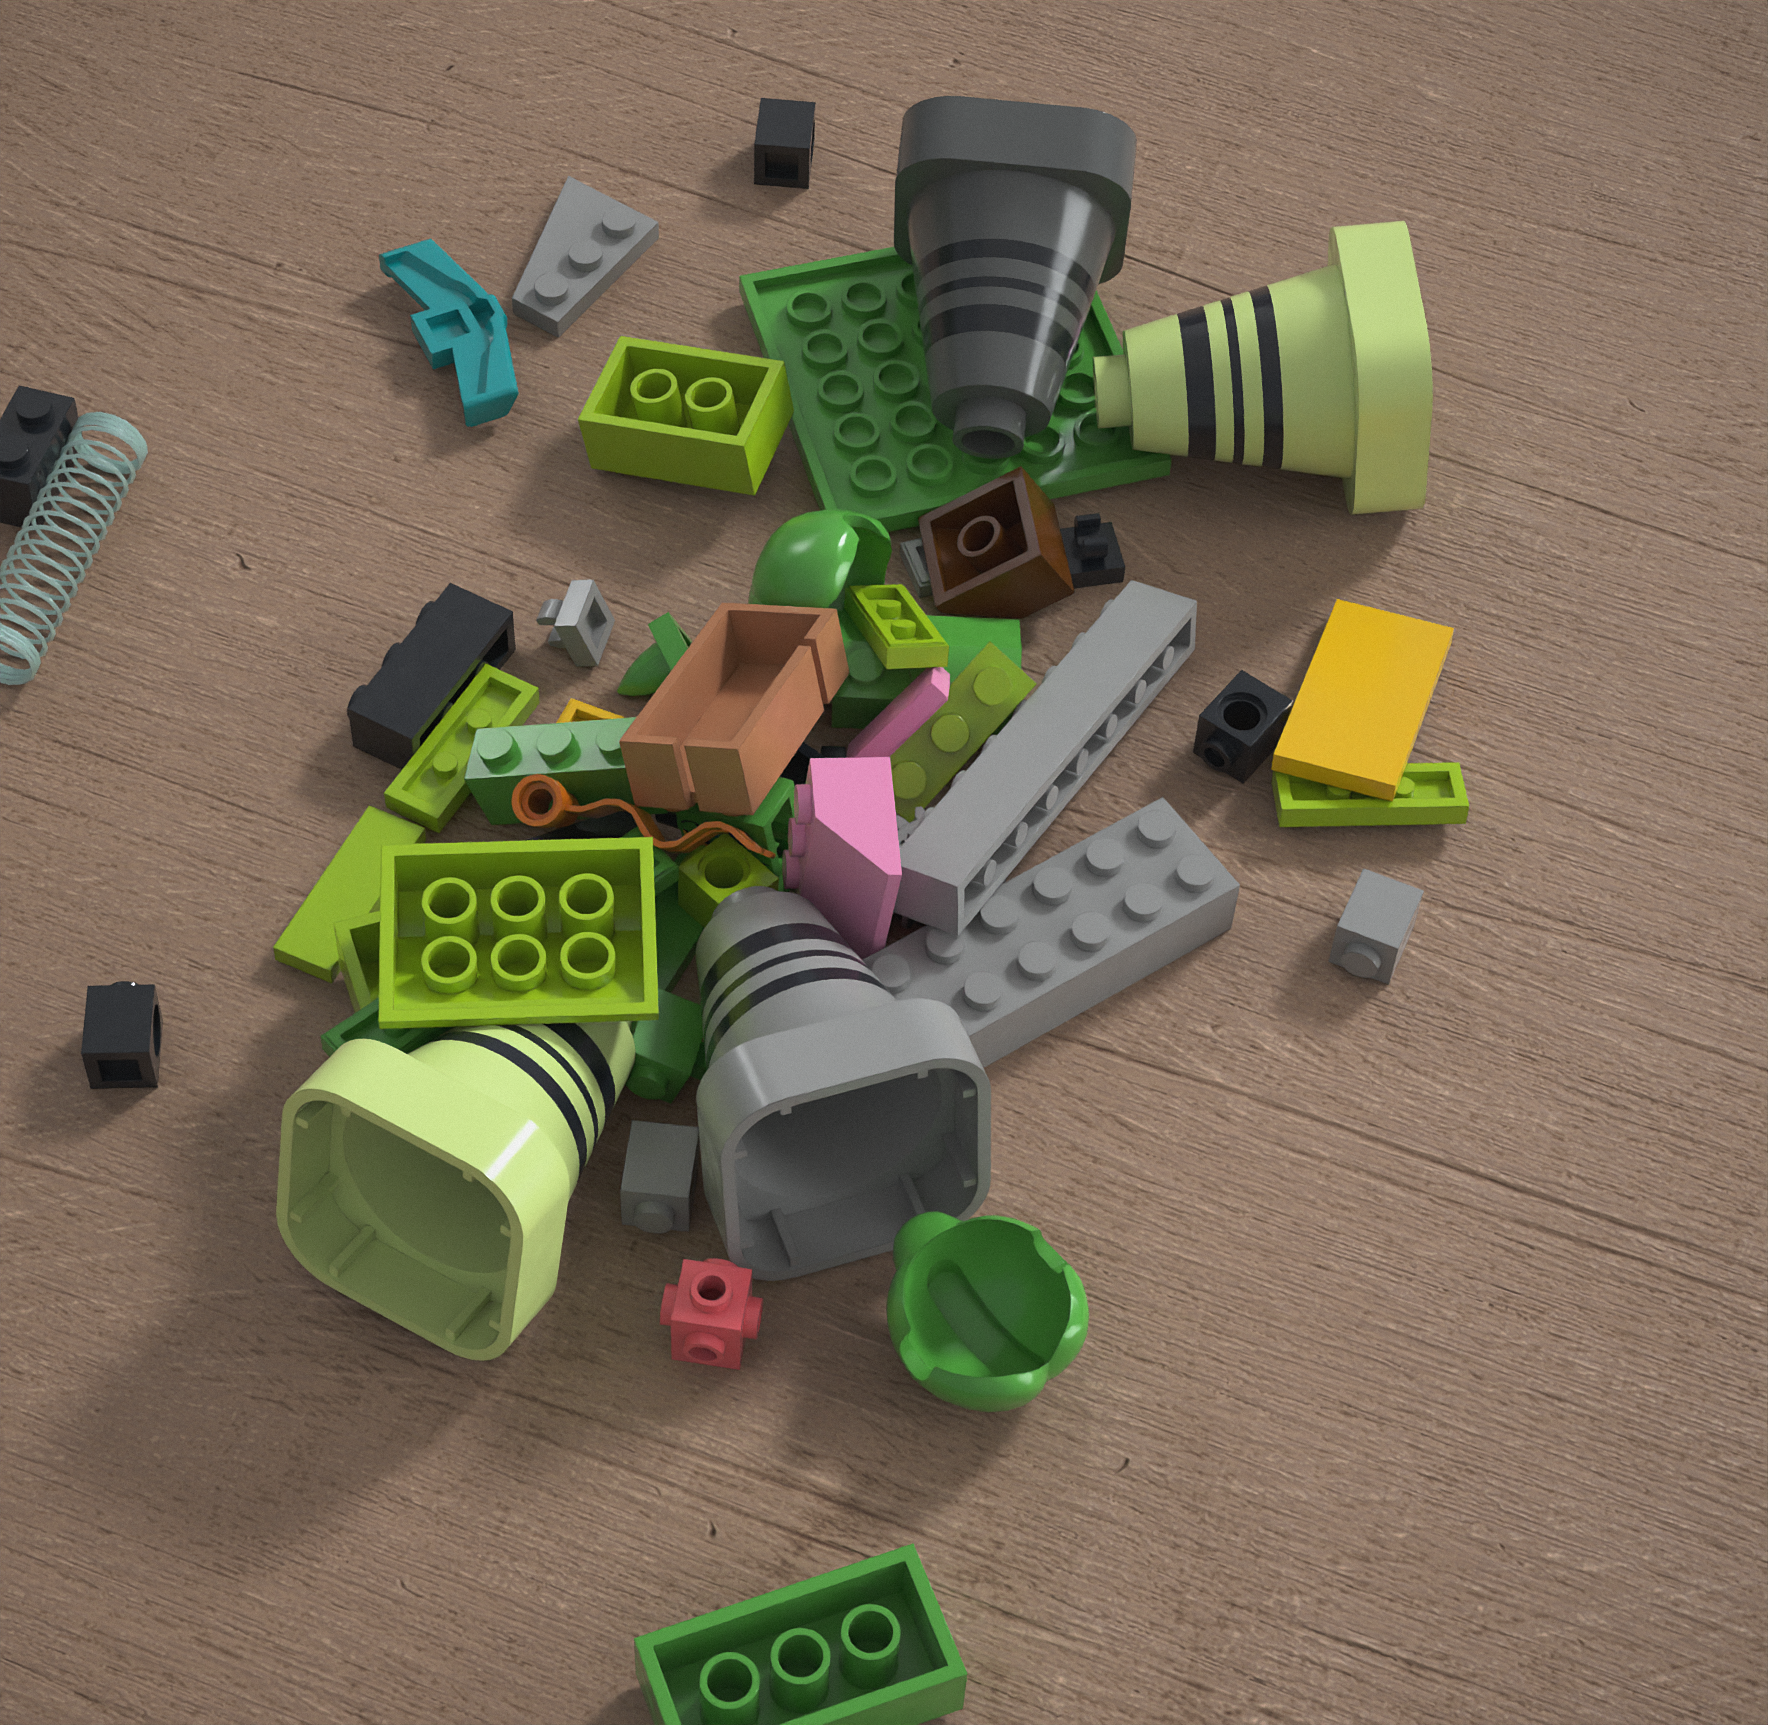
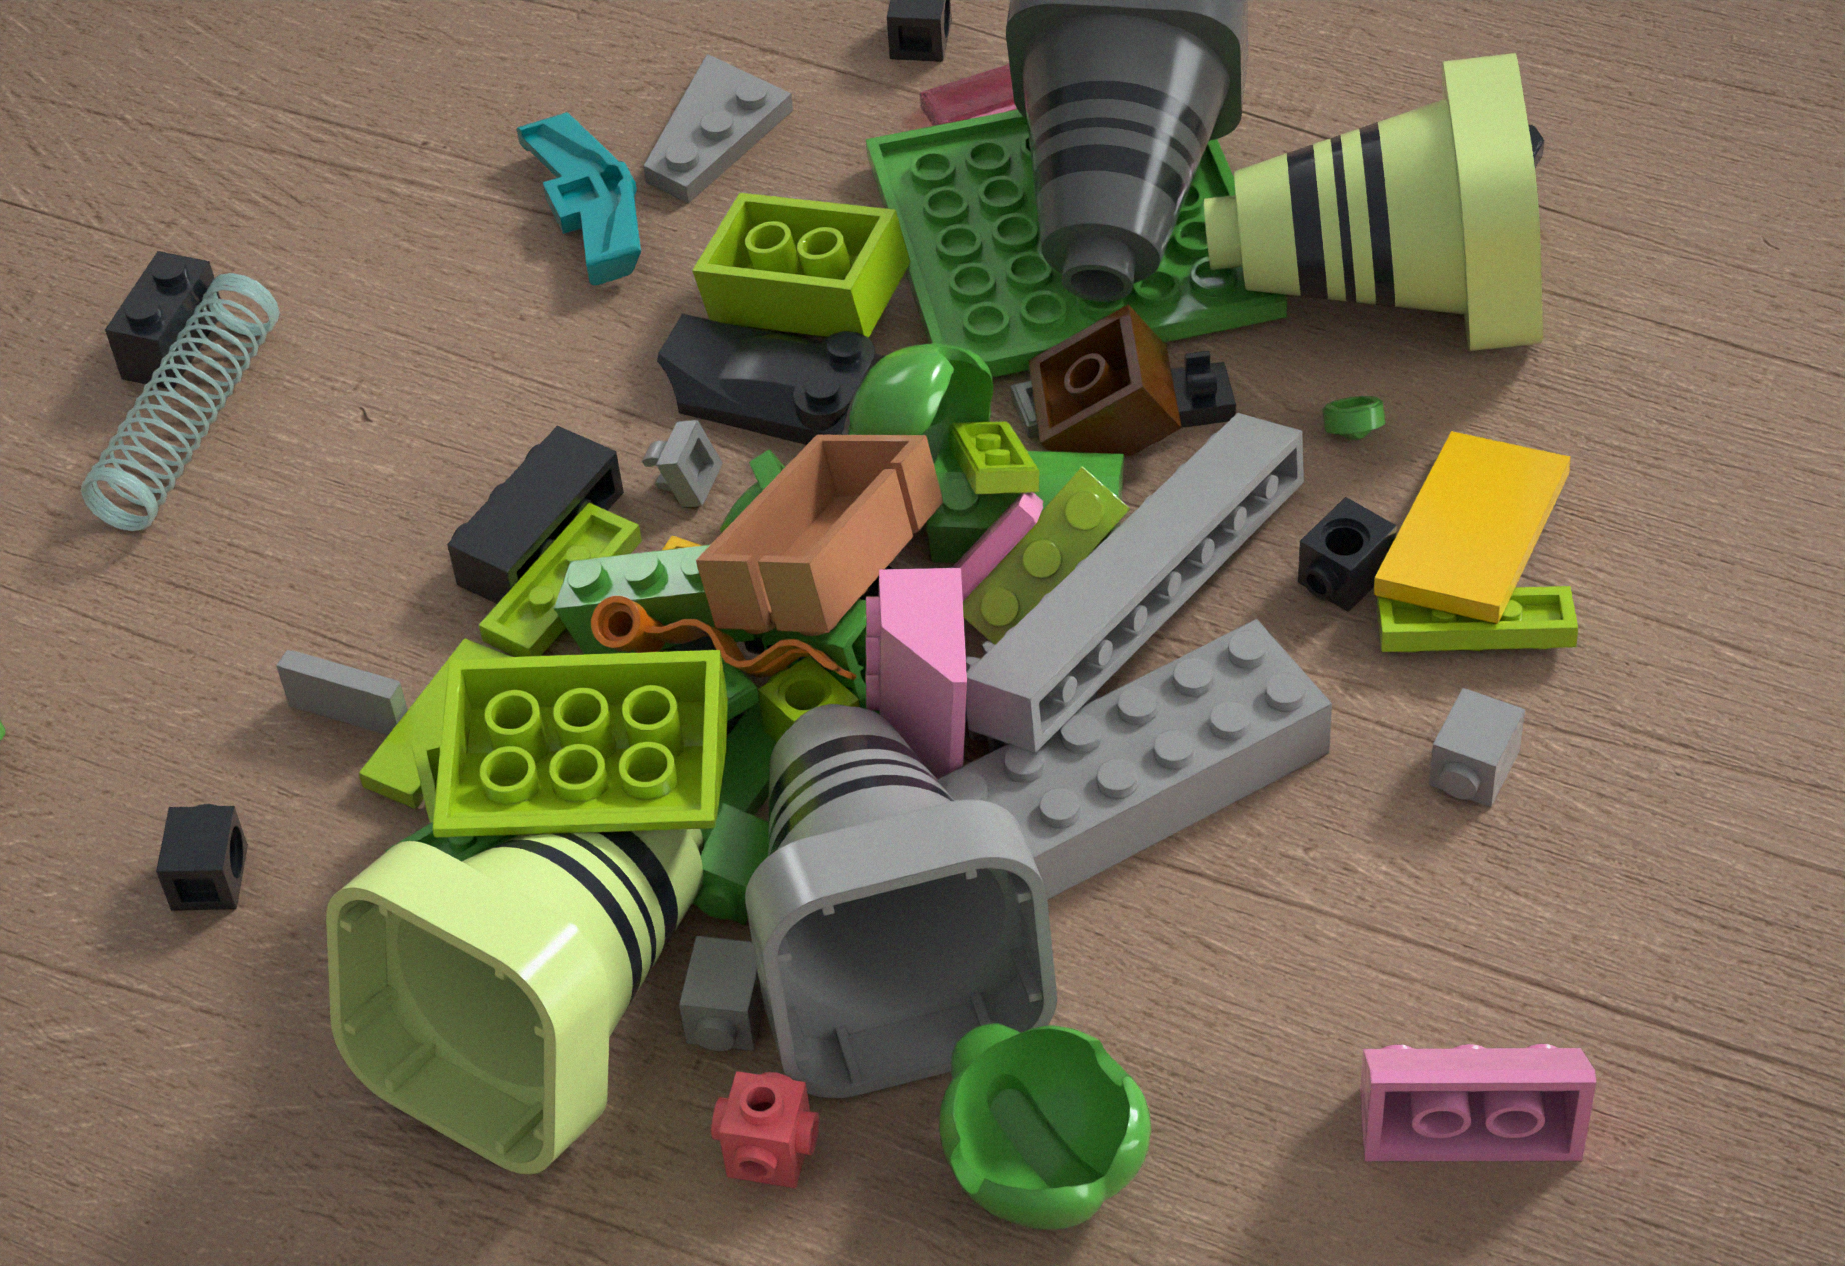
camera: 10 degrees right, 5 degrees down
(250, 862) = (341, 692): none -> light grey tile
(660, 532) = (765, 377): none -> black slope
(846, 230) = (969, 97): none -> clear pink tile
(1241, 581) = (1354, 416): none -> bright green tile
(1390, 1283) = (1476, 1103): none -> bright pink slope

